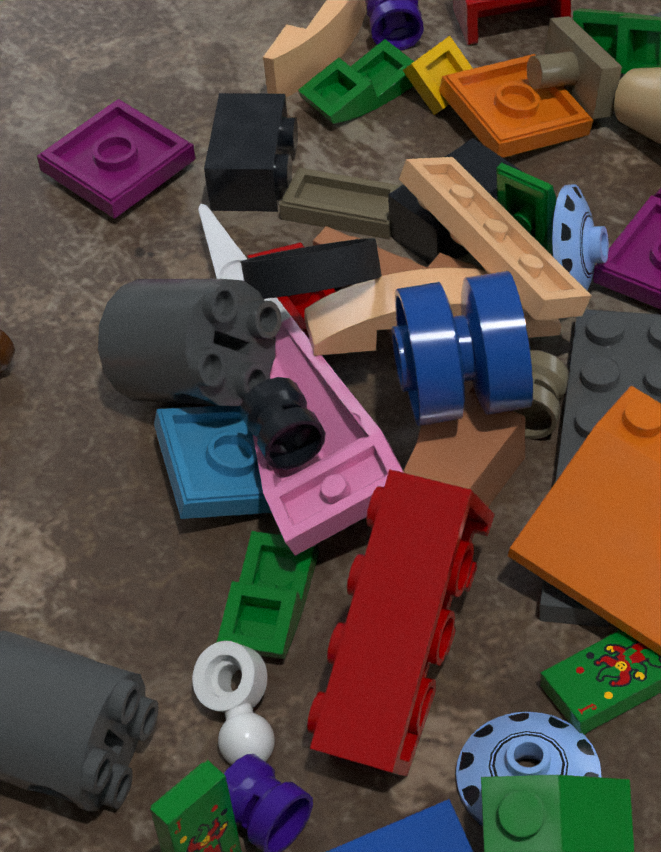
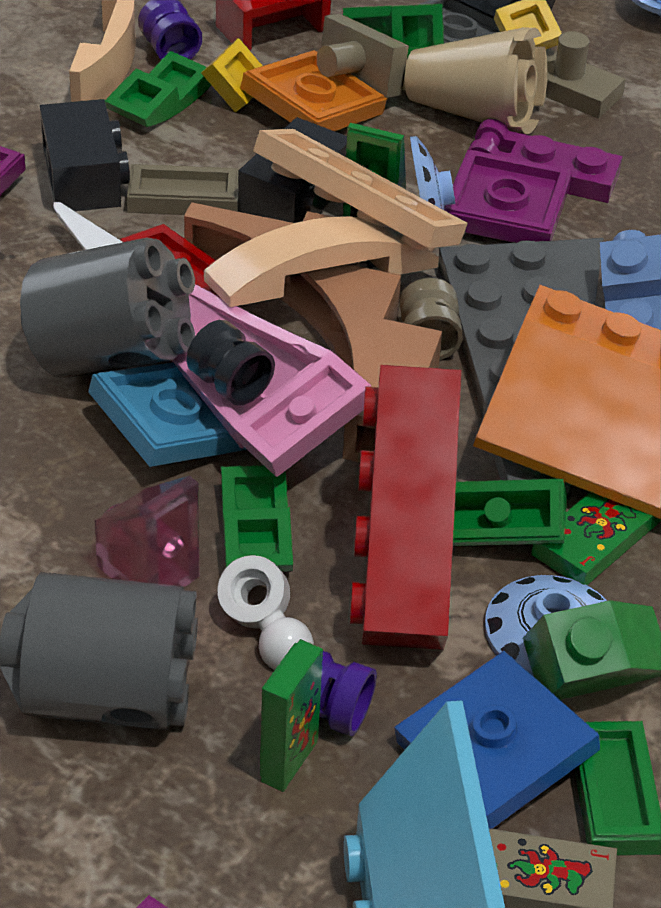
camera: 25 degrees left, 5 degrees down
(147, 607) = (152, 535): none -> clear pink slope
(313, 268) = (212, 227): black tyre -> none
(480, 346) = (384, 271): blue wheel -> none
(518, 637) = (509, 512): none -> green slope

